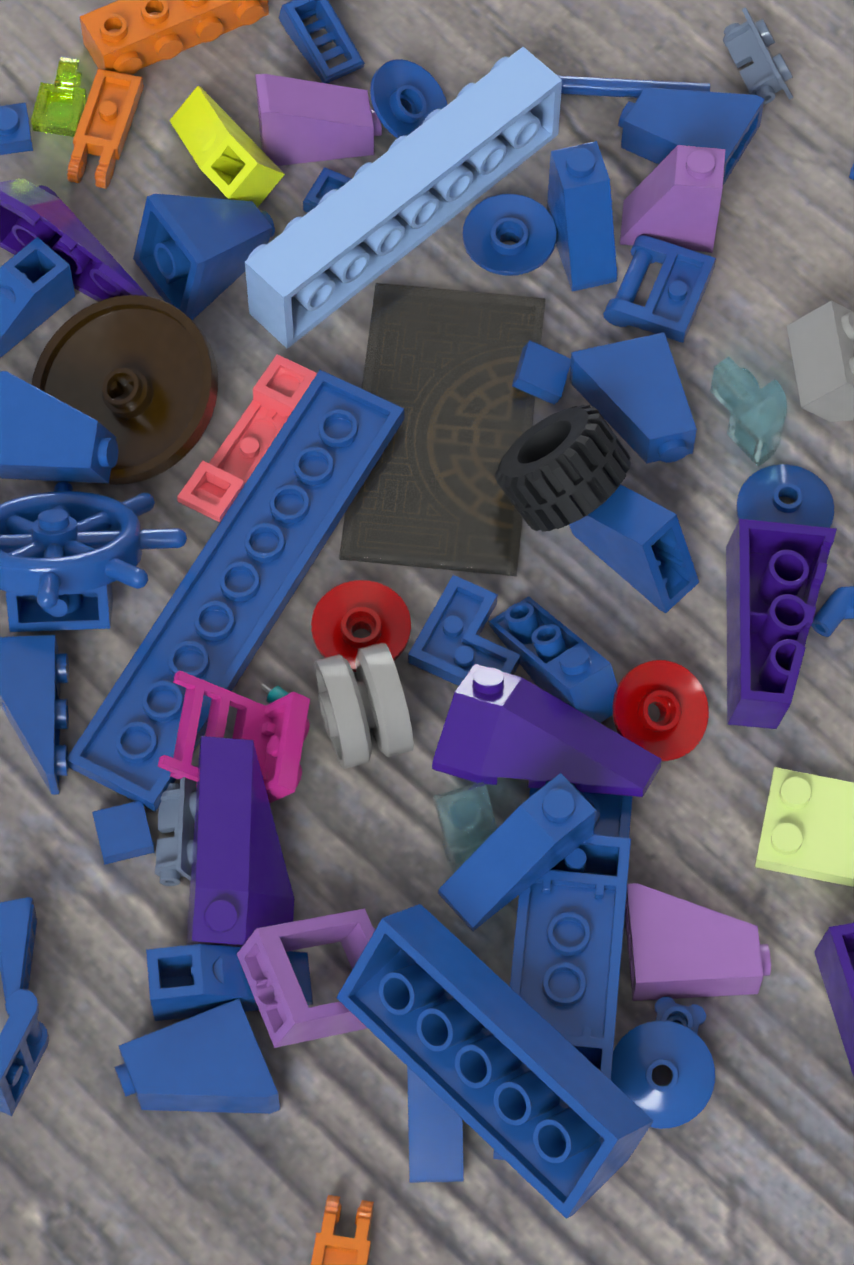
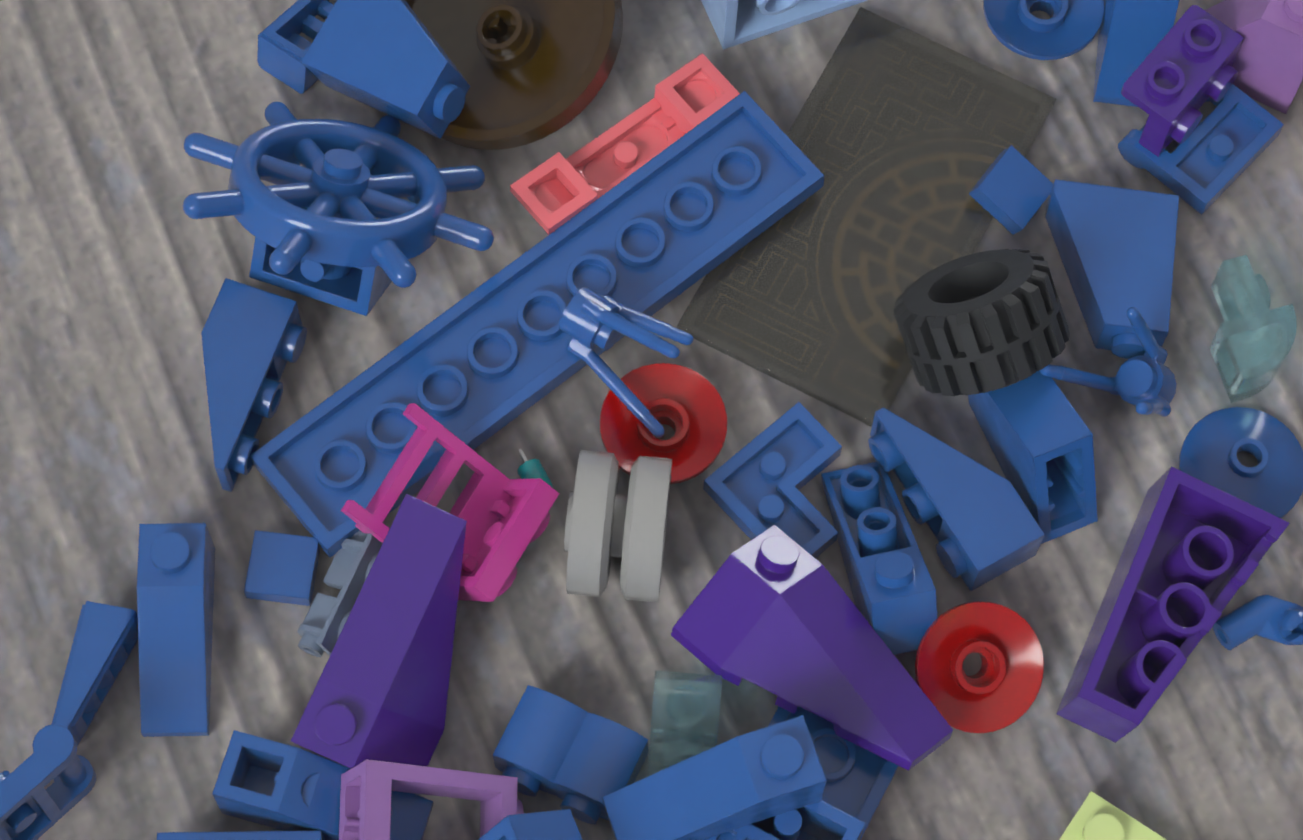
camera: 20 degrees right, 5 degrees up
(64, 902) = (175, 628): none -> blue slope
(287, 567) = (599, 323): none -> blue plant
(392, 877) = (568, 753): none -> blue brick
(601, 602) = (968, 507): none -> blue slope
(631, 245) = (1180, 75): none -> dark purple bracket
(689, 471) = (1139, 381): none -> blue plant

